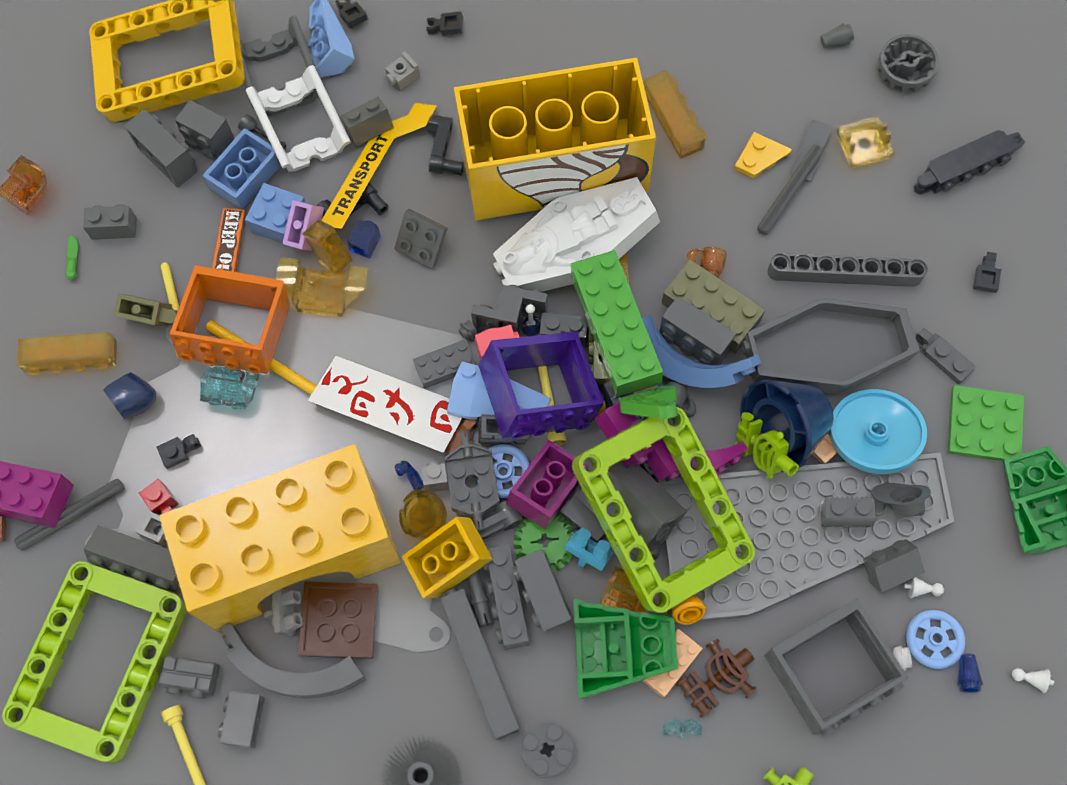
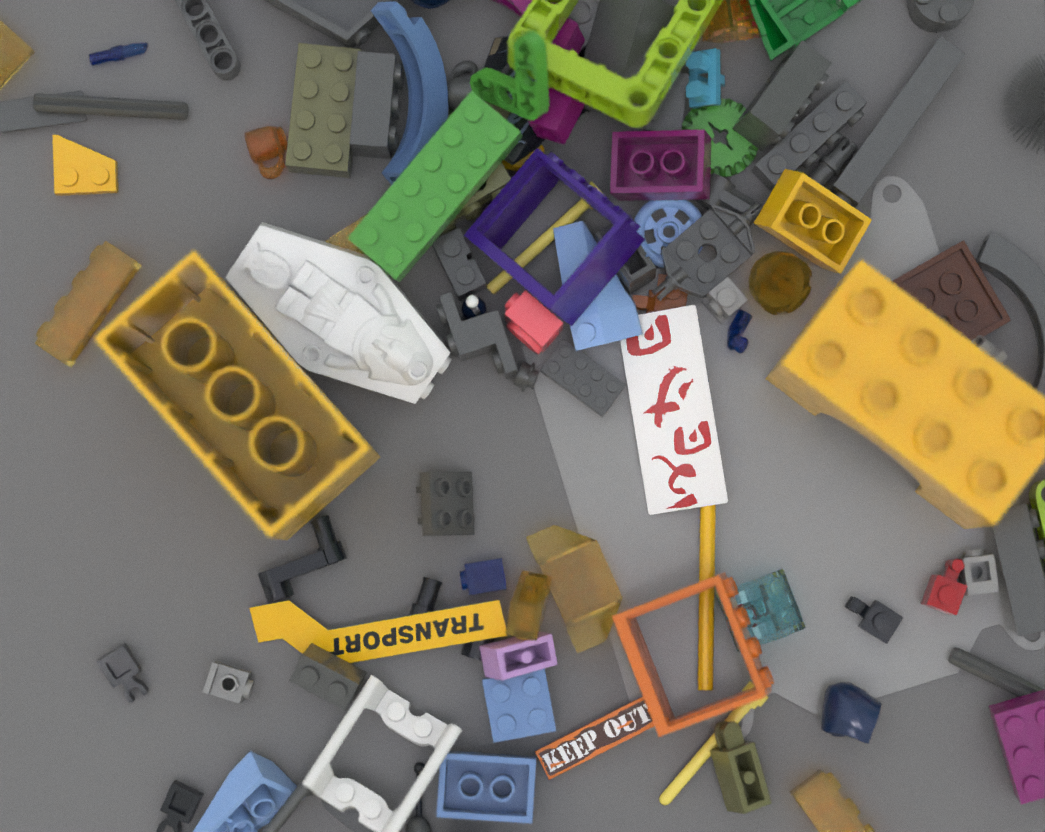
camera: 120 degrees left, 15 degrees up
(823, 212) = (117, 53): none -> clear blue piece

